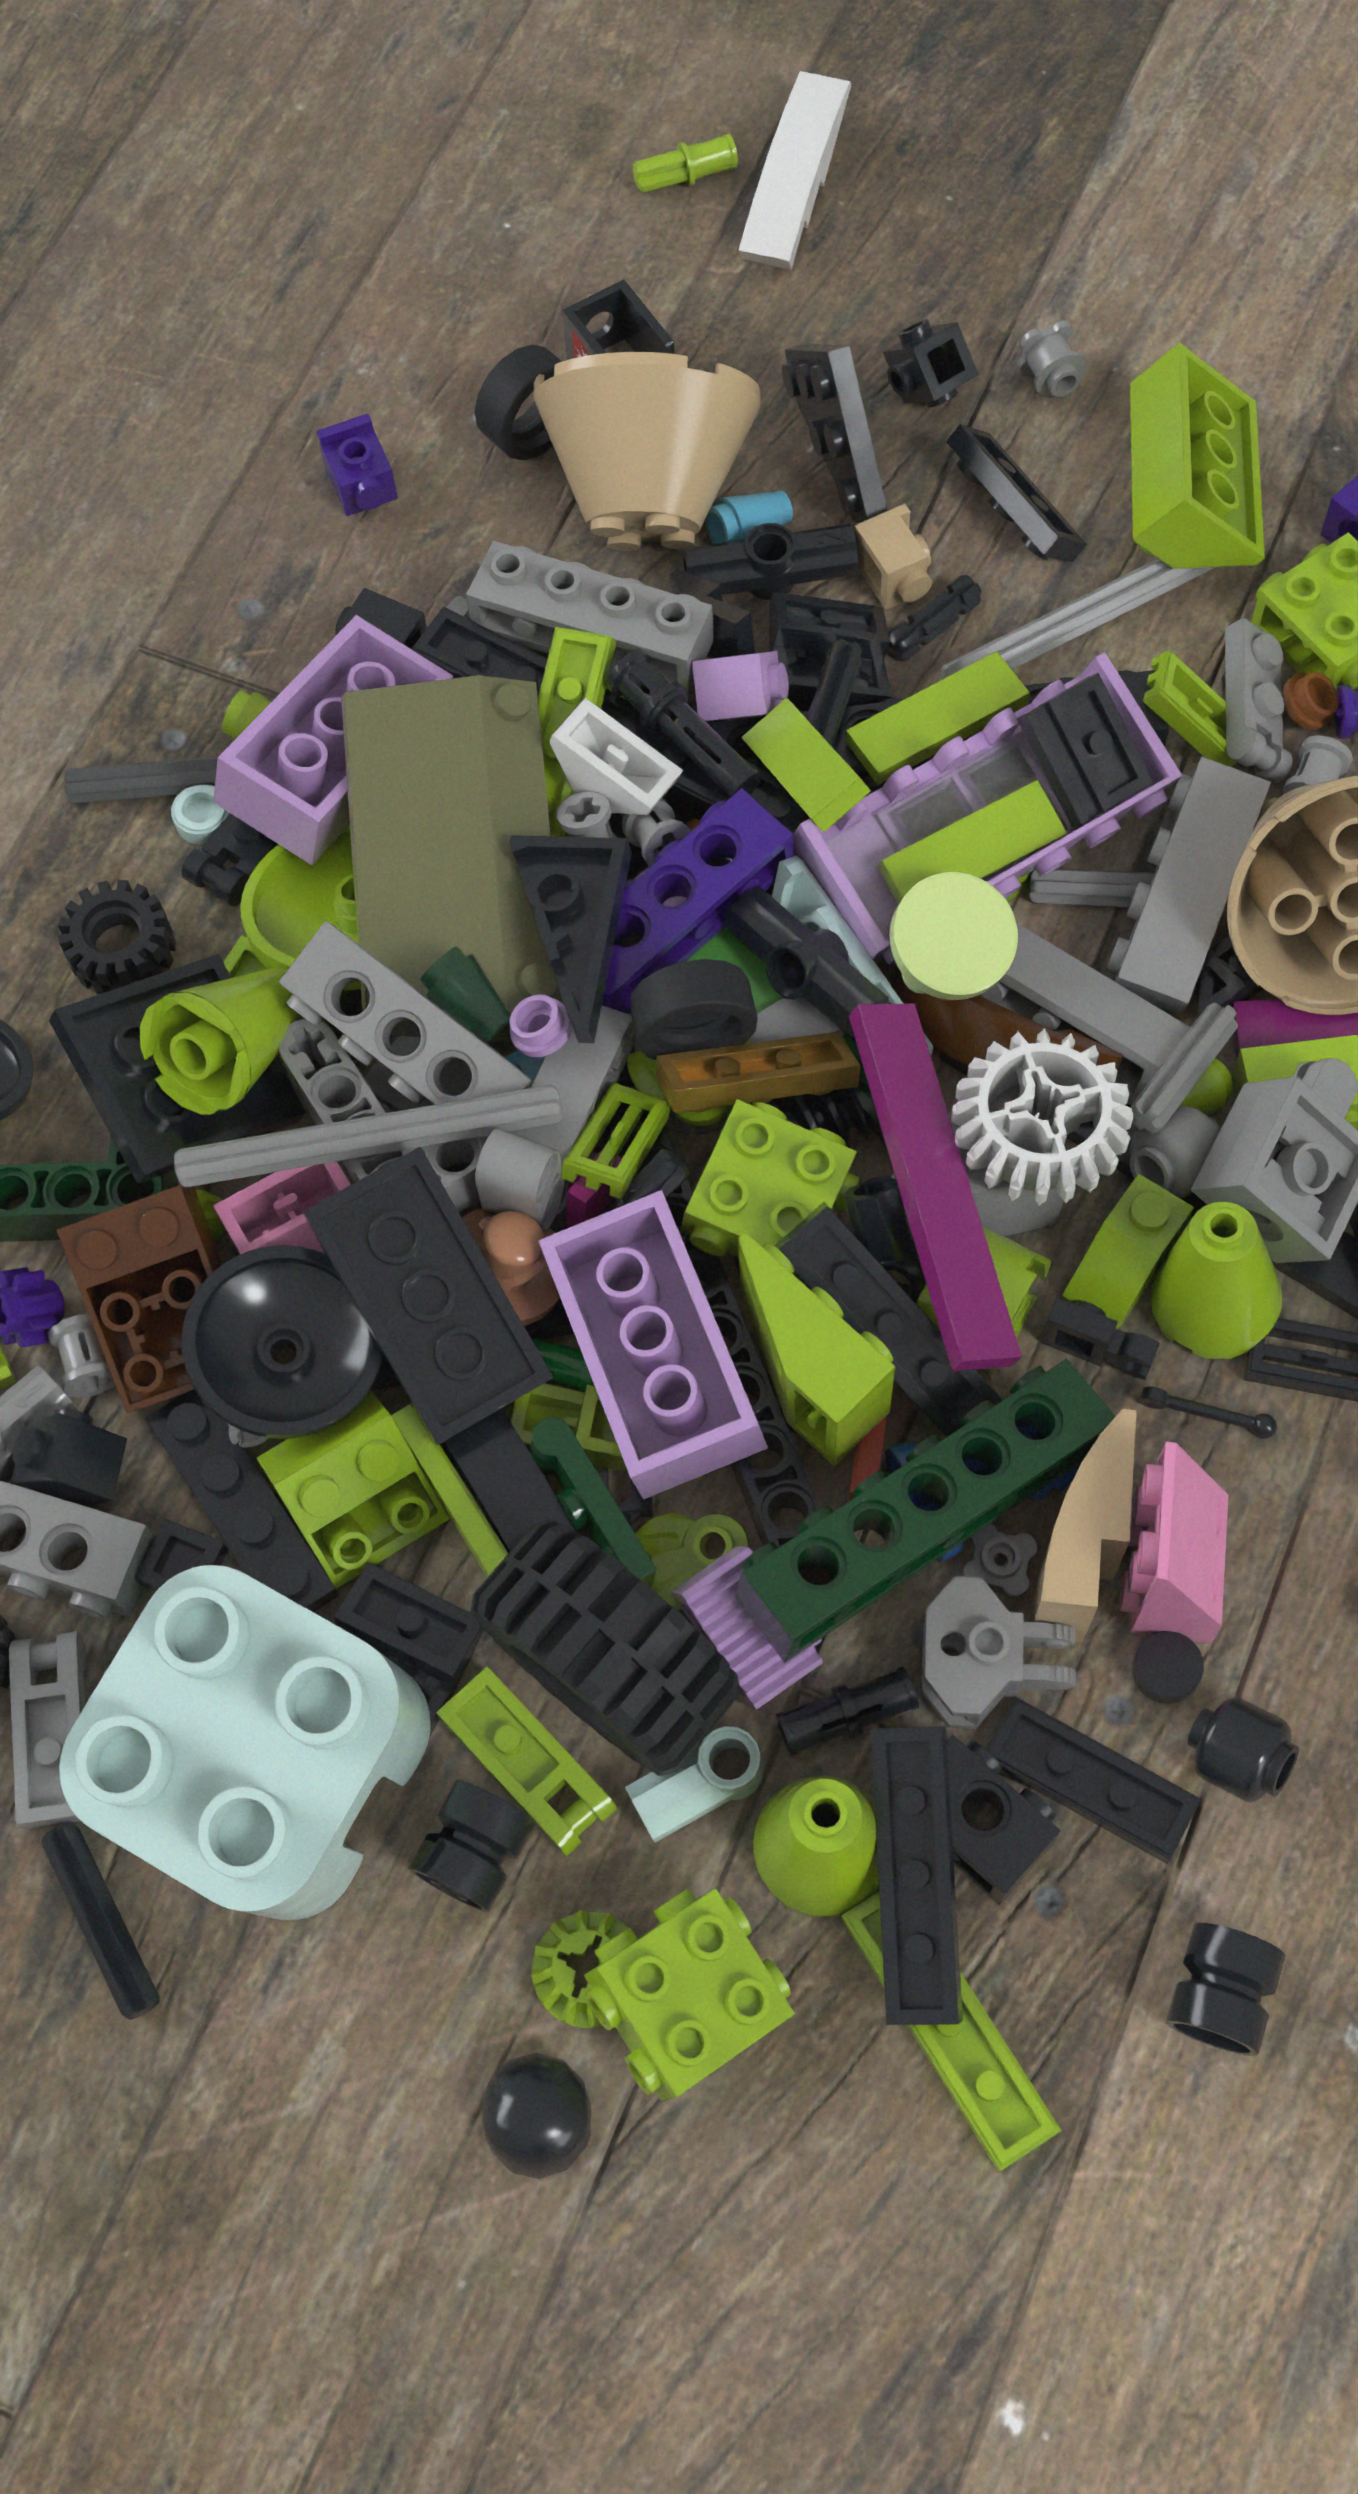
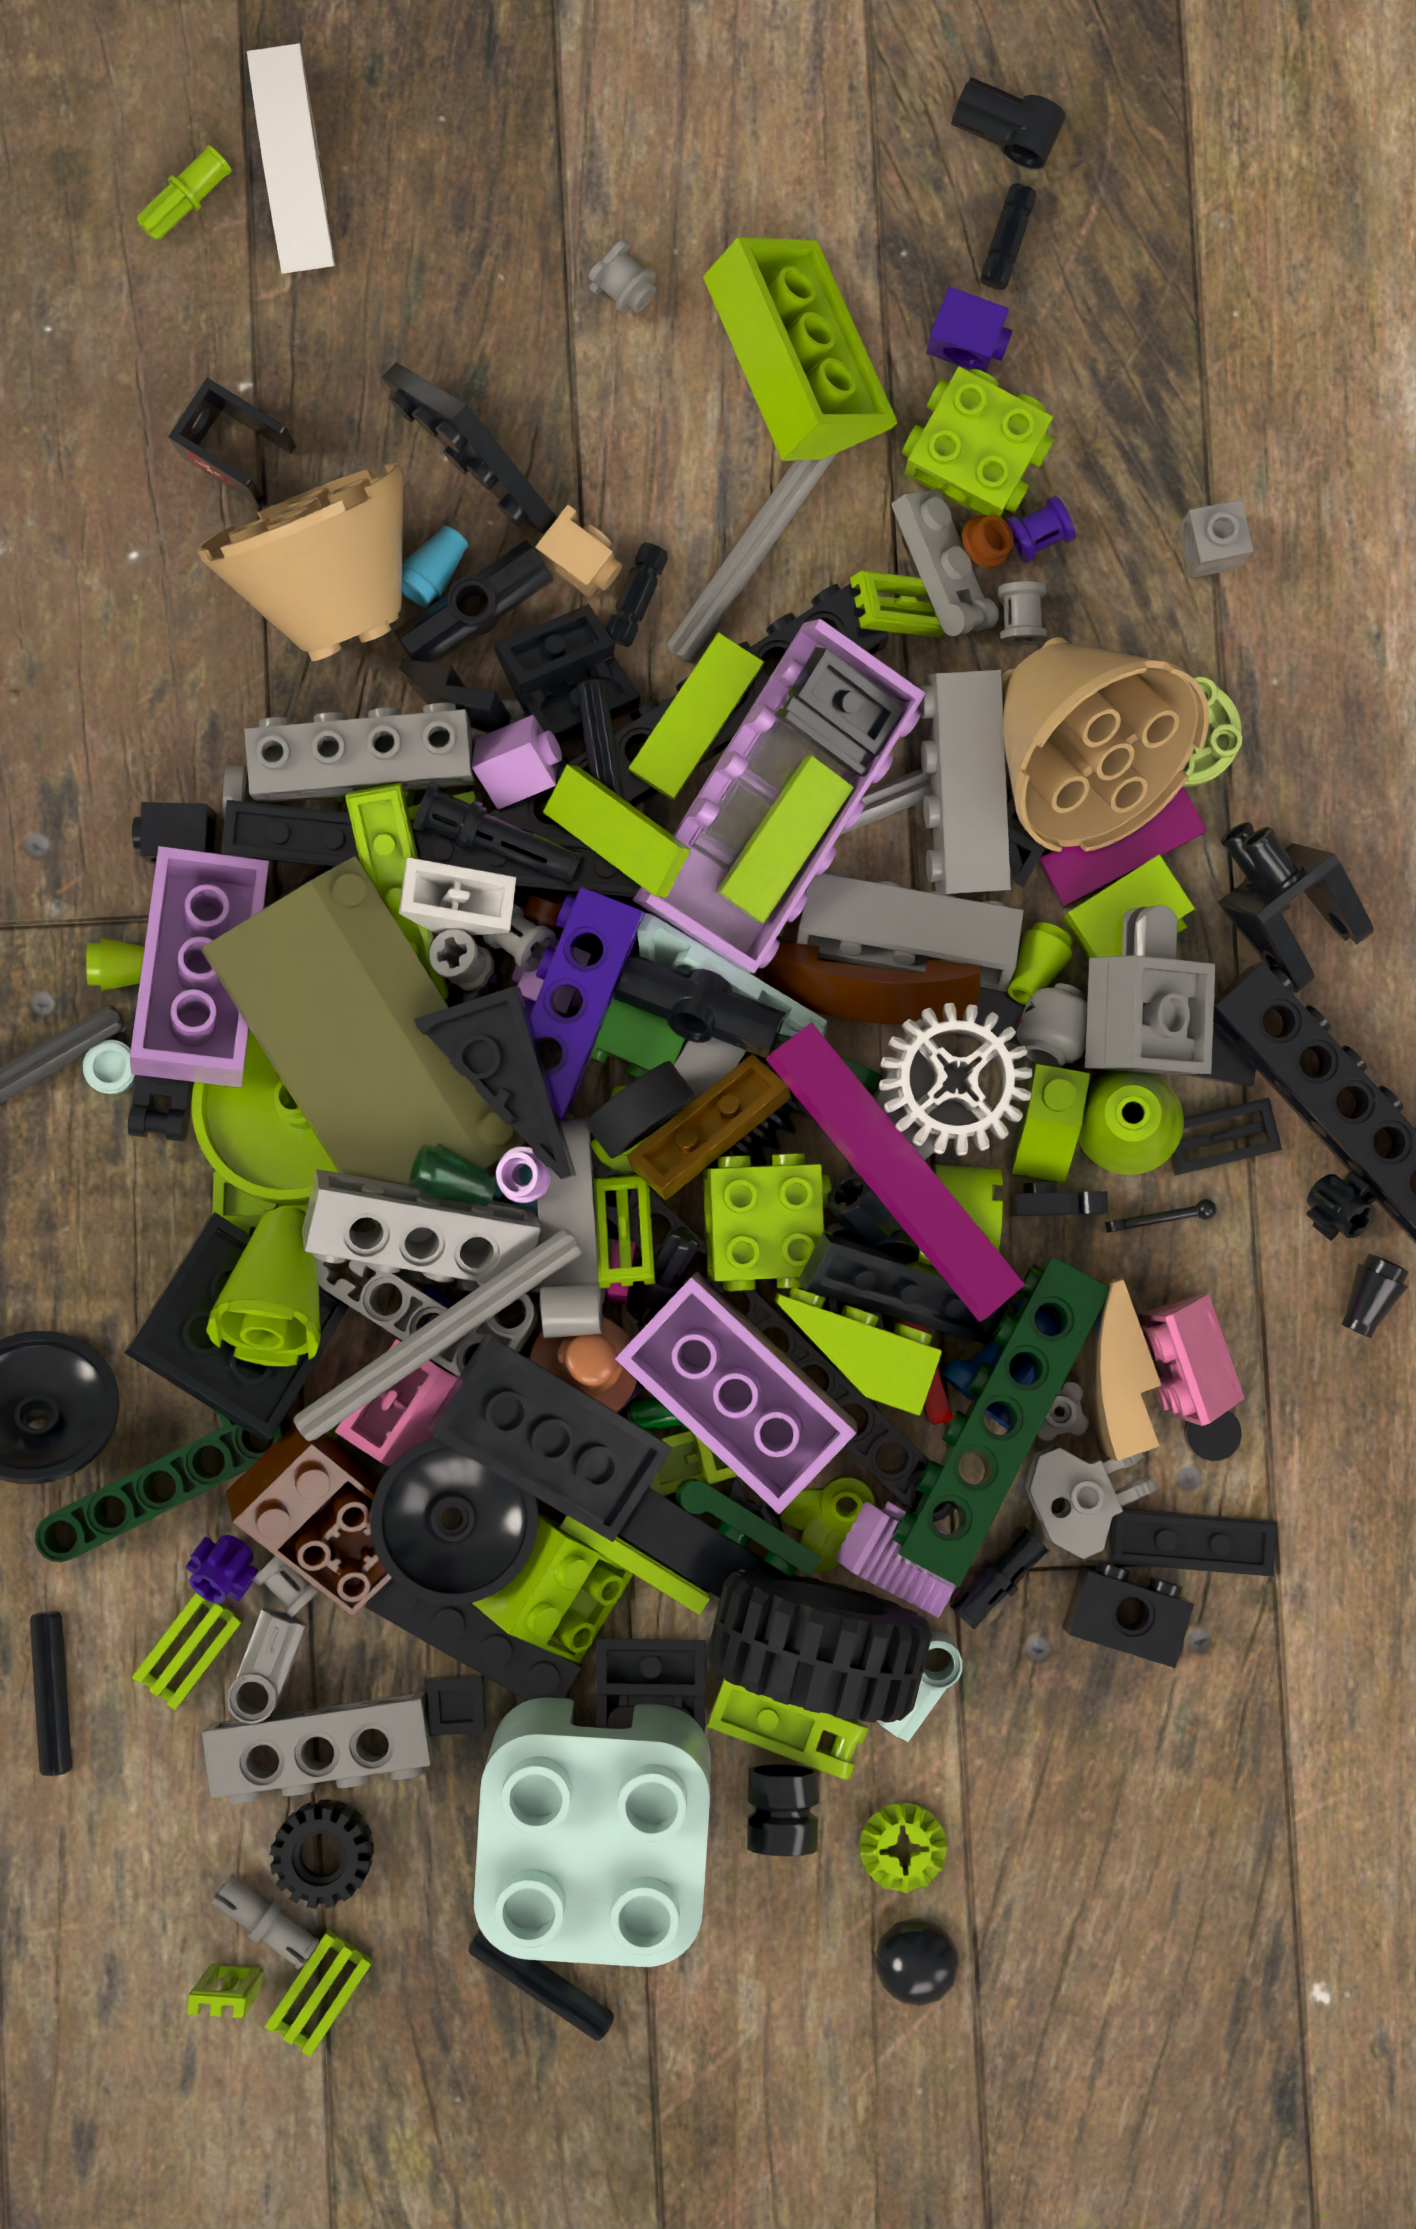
camera: 30 degrees left, 20 degrees up
(41, 1723) = (426, 1870): light grey plate -> none
(68, 1458) = (330, 1673): black brick -> none
(106, 911) = (76, 1214): black tyre -> none
(357, 465) = (44, 651): dark purple brick -> none
(502, 397) = (172, 541): black tyre -> none
(686, 1992) = (986, 1840): lime brick -> none
(815, 1866) = (1025, 1680): lime cone -> none
(916, 1876) = (1109, 1686): black plate -> none
(929, 363) = (518, 336): black brick -> none
(953, 936) = (810, 937): yellowish green tile -> none
(970, 2061) = (1168, 1761): lime tile -> none
(1015, 495) = (652, 437): black plate -> none
(1183, 1068) = (1033, 956): light grey axle -> none
(1225, 1988) = (1350, 1654): black wheel -> none
(1243, 1749) = (1293, 1475): black head -> none

